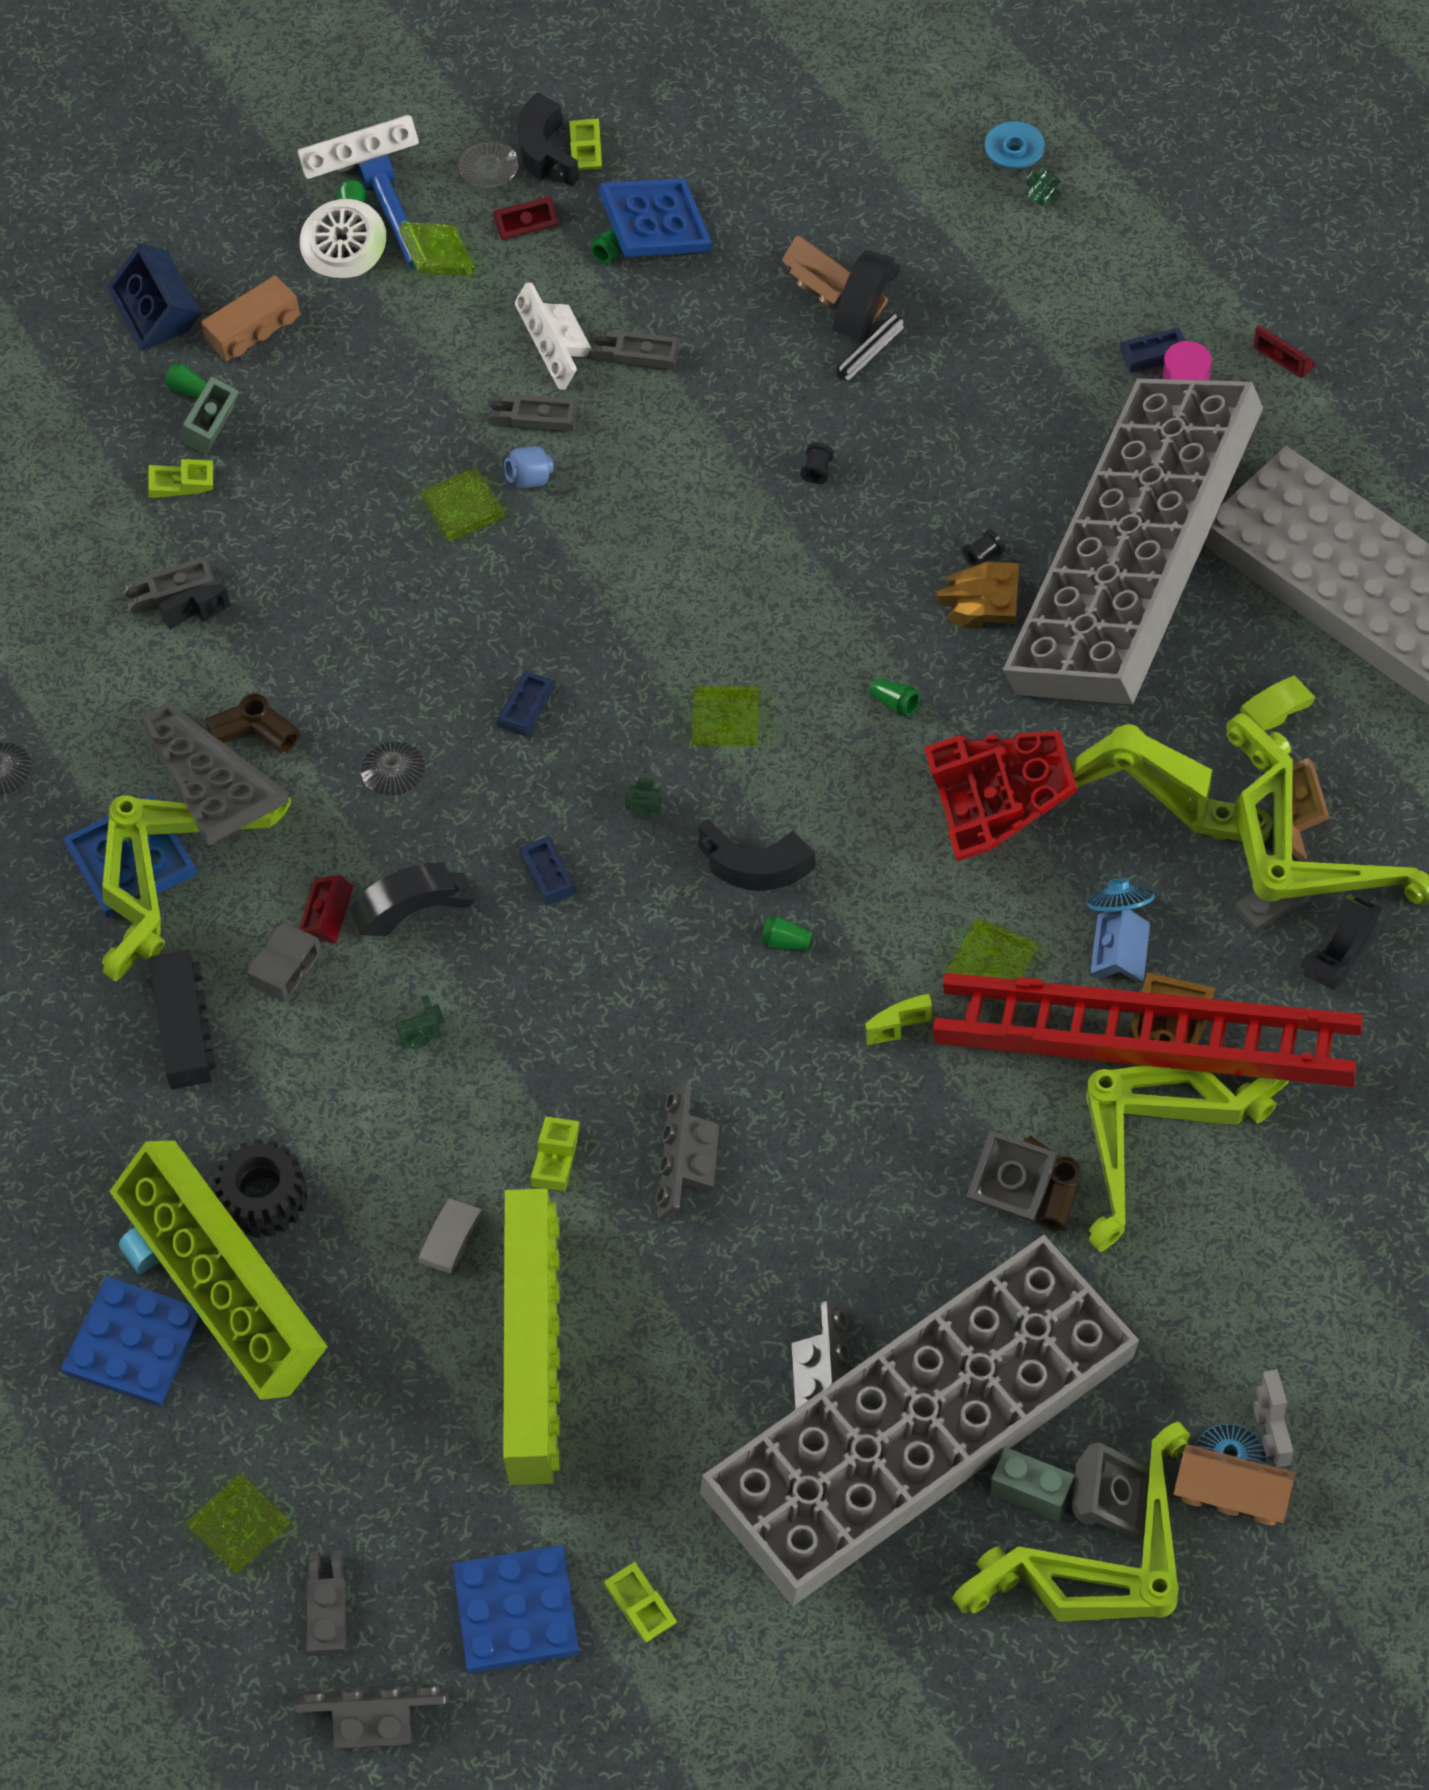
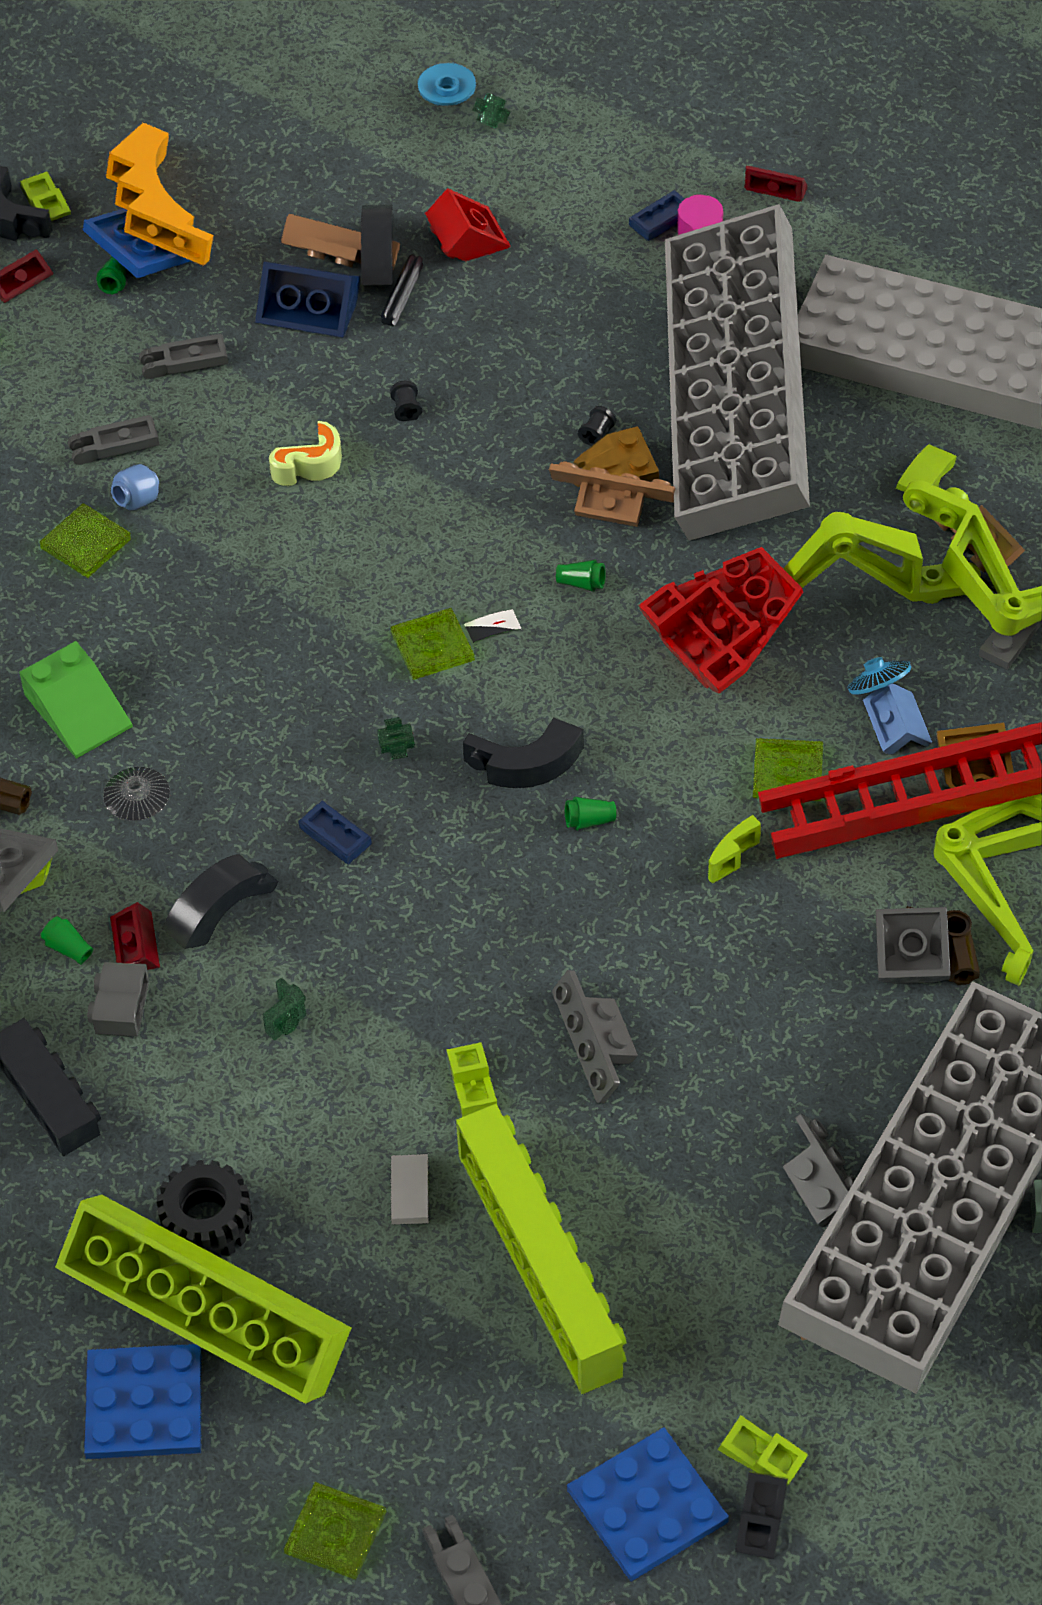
camera: 25 degrees left, 5 degrees down
(137, 1251) = (108, 1314): medium azure brick -> none
(263, 886) = (65, 939): none -> green cone
(377, 659) = (74, 699): none -> bright green slope
(525, 703) = (238, 693): dark blue plate -> none
(554, 334) = (97, 366): white bracket -> none
(609, 1660) = (761, 1515): none -> black slope
(666, 194) = (150, 209): none -> light orange arch
(699, 495) = (308, 461): none -> yellowish green animal
(775, 327) = (306, 298): none -> dark blue slope
(790, 716) = (492, 625): none -> sticker
(957, 627) = (611, 496): none -> medium nougat bracket
(960, 301) = (465, 227): none -> red slope

